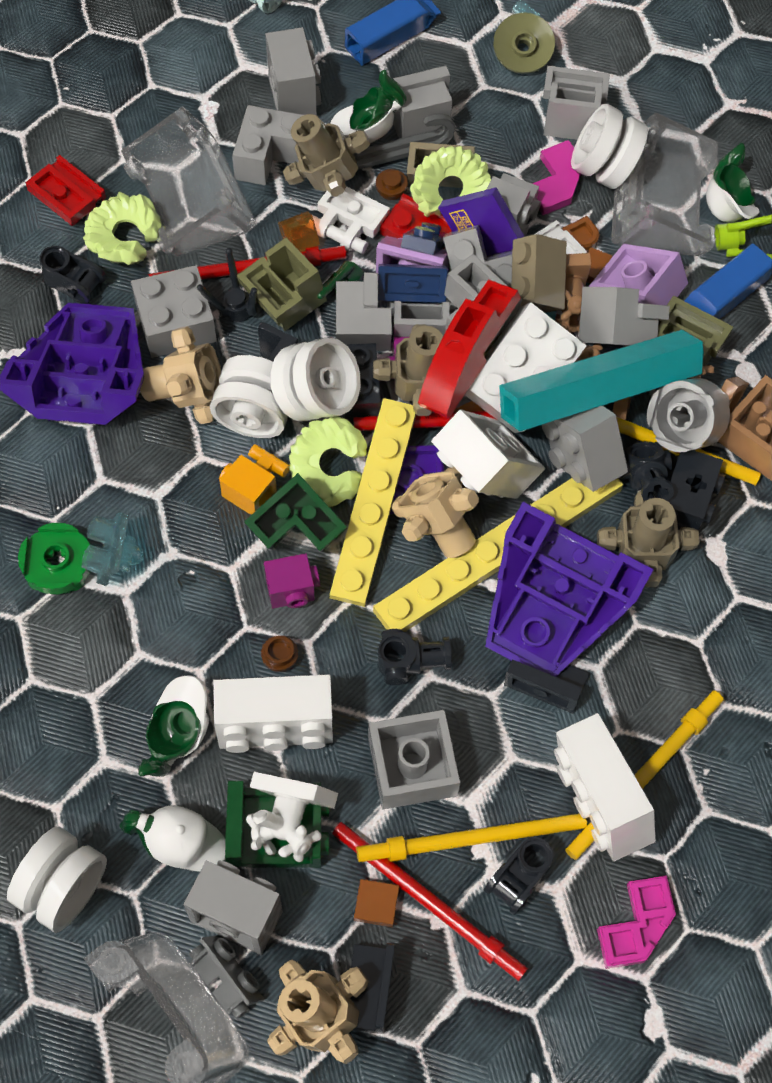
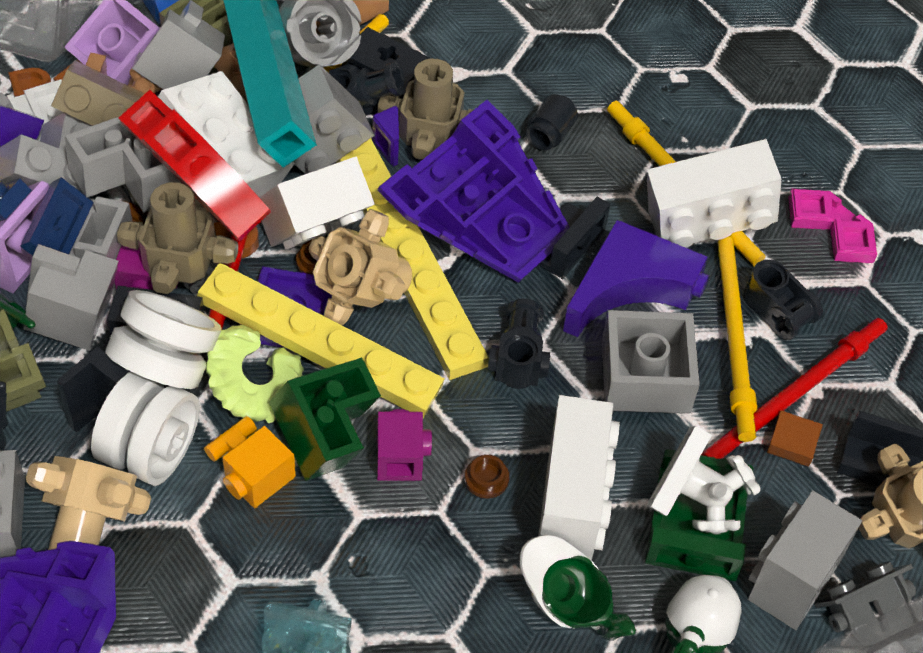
camera: 80 degrees left, 10 degrees down
(518, 732) = (635, 269): none -> dark purple arch
(610, 508) = (386, 132): none -> dark purple slope
(674, 641) = (551, 122): none -> black brick

